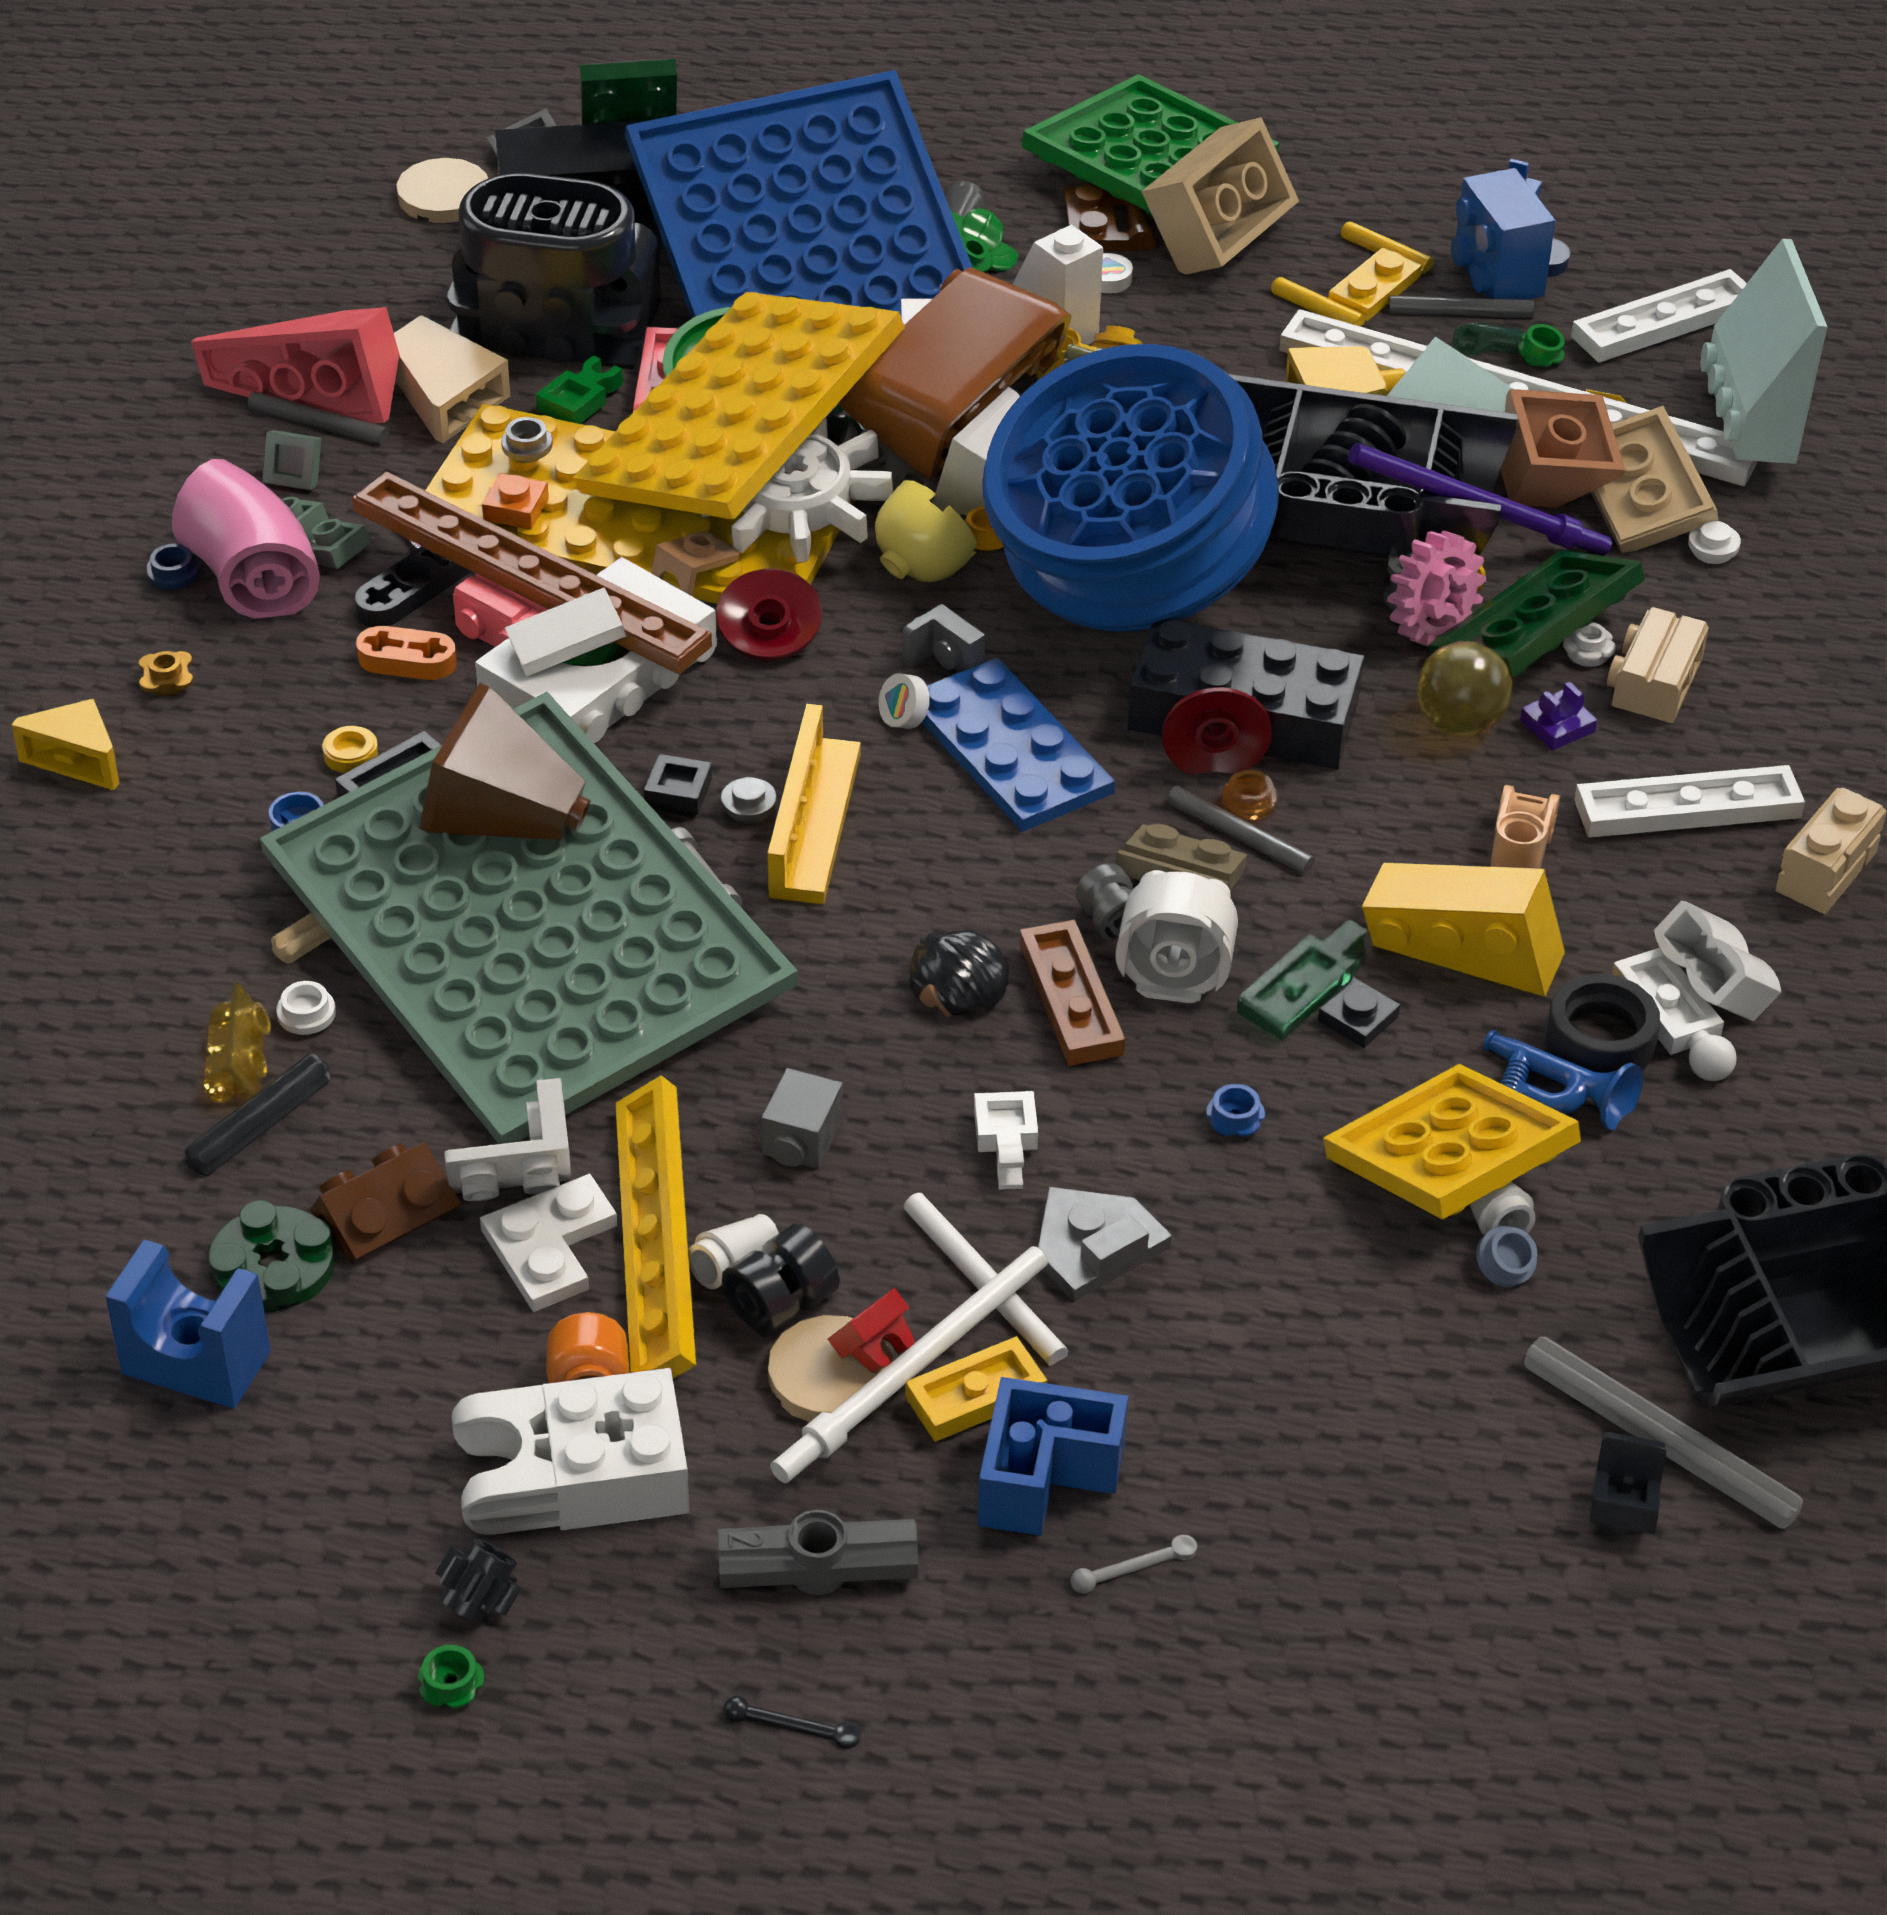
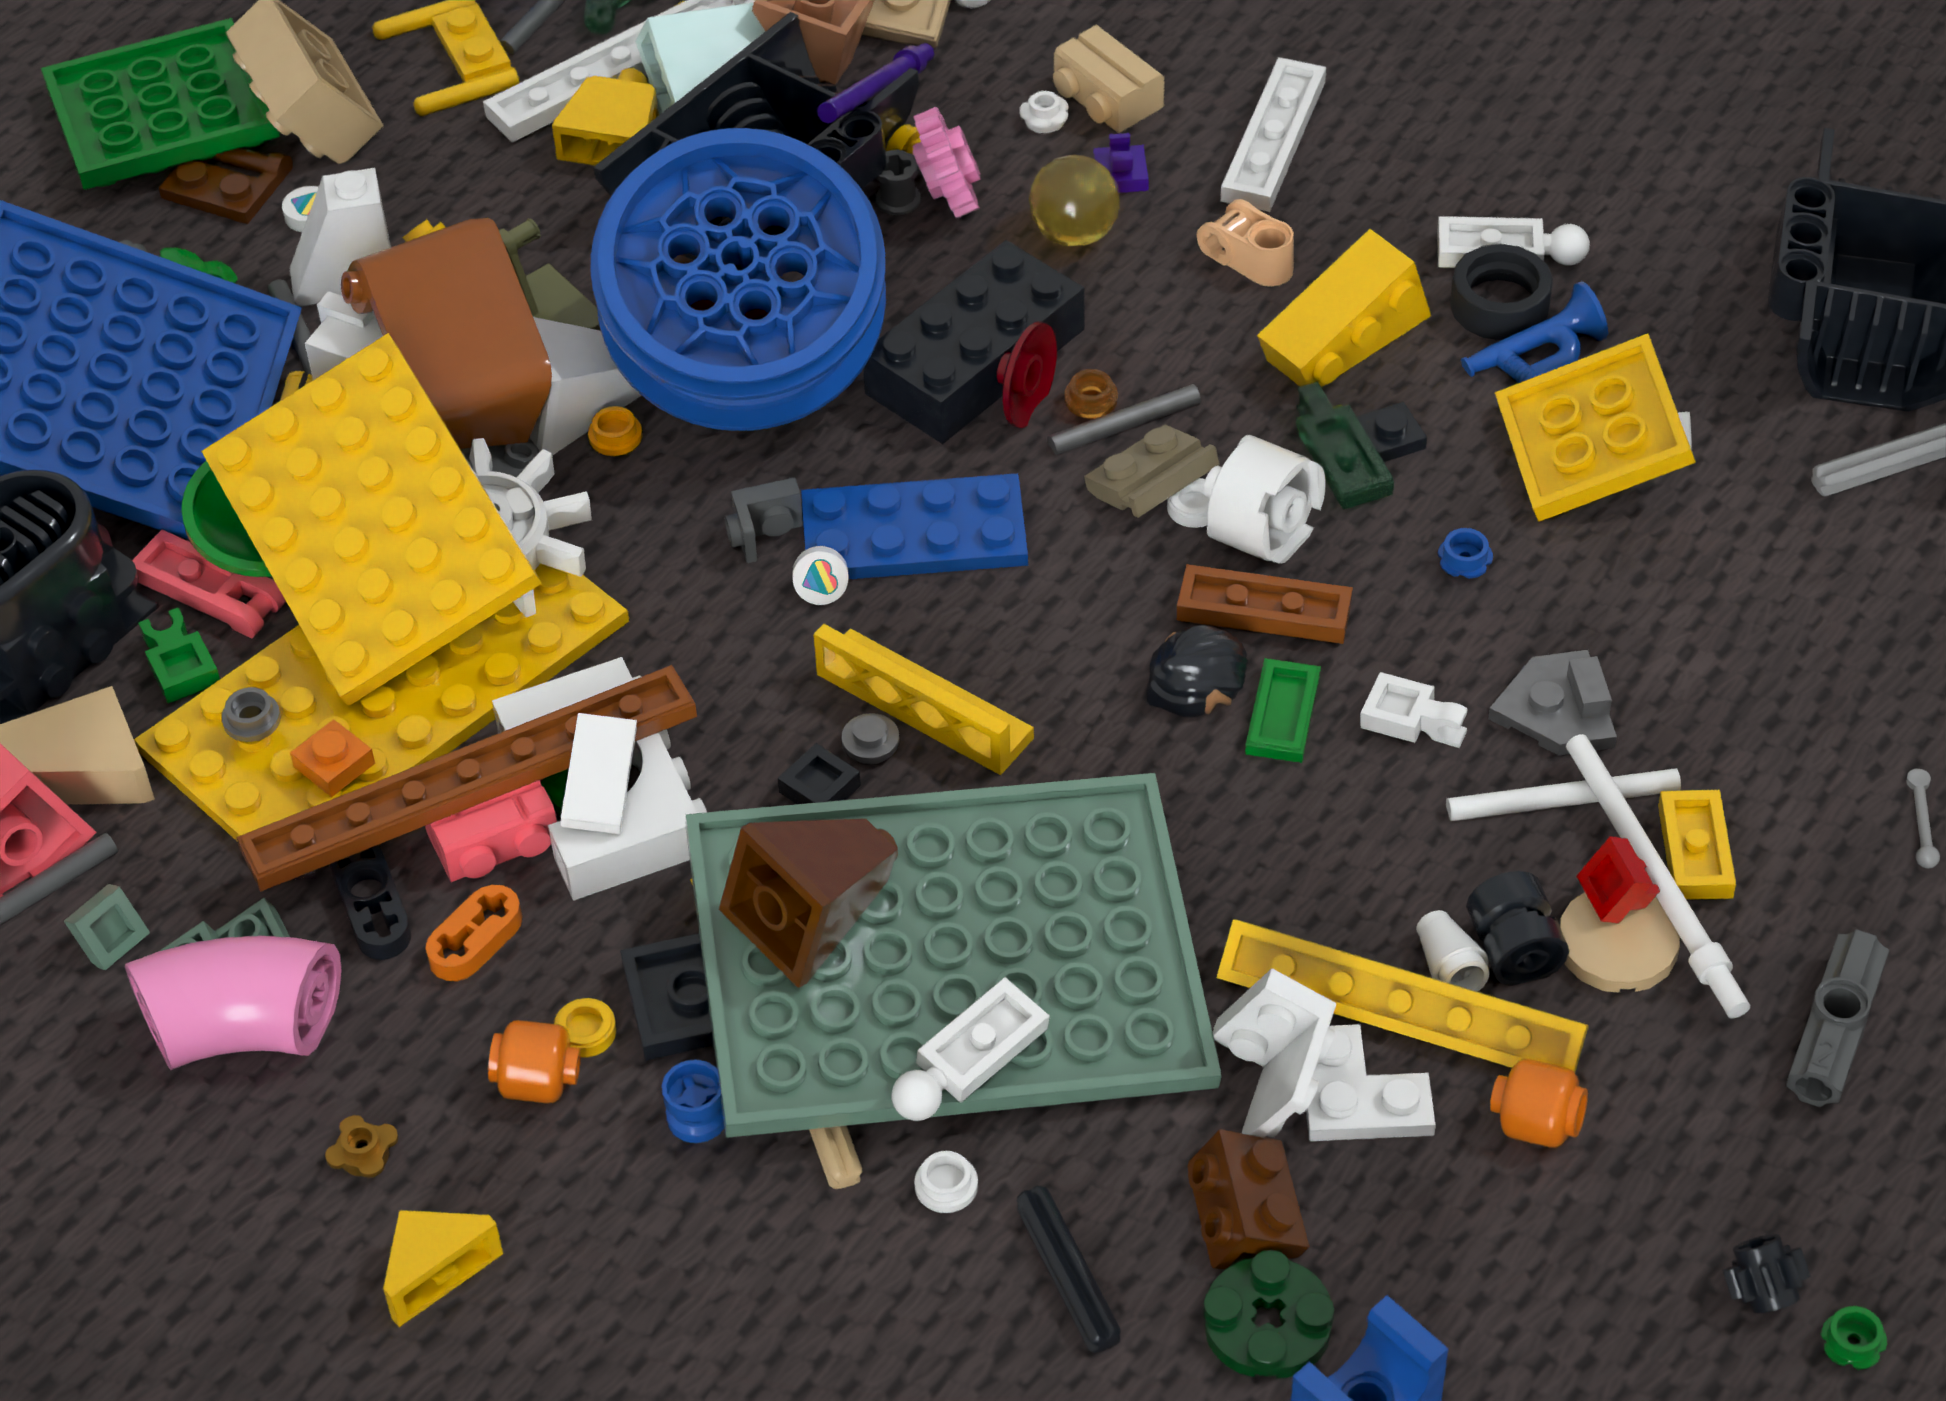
camera: 60 degrees left, 5 degrees up
(172, 567) = (191, 1076): dark blue plate -> none
(236, 1047) = (994, 1263): clear yellow hinge -> none
(285, 724) = (533, 1061): none -> orange head
(408, 949) = (970, 1050): none -> white plate
(577, 1453) = (1653, 1140): white brick -> none
(691, 556) = (523, 650): medium nougat bracket -> none
(769, 597) = (636, 608): dark red dish -> none
(802, 1119) = (1323, 845): dark grey brick -> none
(920, 537) = (615, 470): light yellow cylinder -> none
(958, 1050) = (1283, 710): none -> green tile
(1047, 1438) = (1800, 821): blue brick -> none
(1103, 896) = (1176, 533): dark grey wheel -> none
(1507, 1256) = (1718, 451): sand blue plate -> none
(1546, 607) = (1002, 117): dark green plate -> none
(1717, 961) = (1495, 190): white brick -> none
(1831, 850) = (1390, 76): tan brick -> none

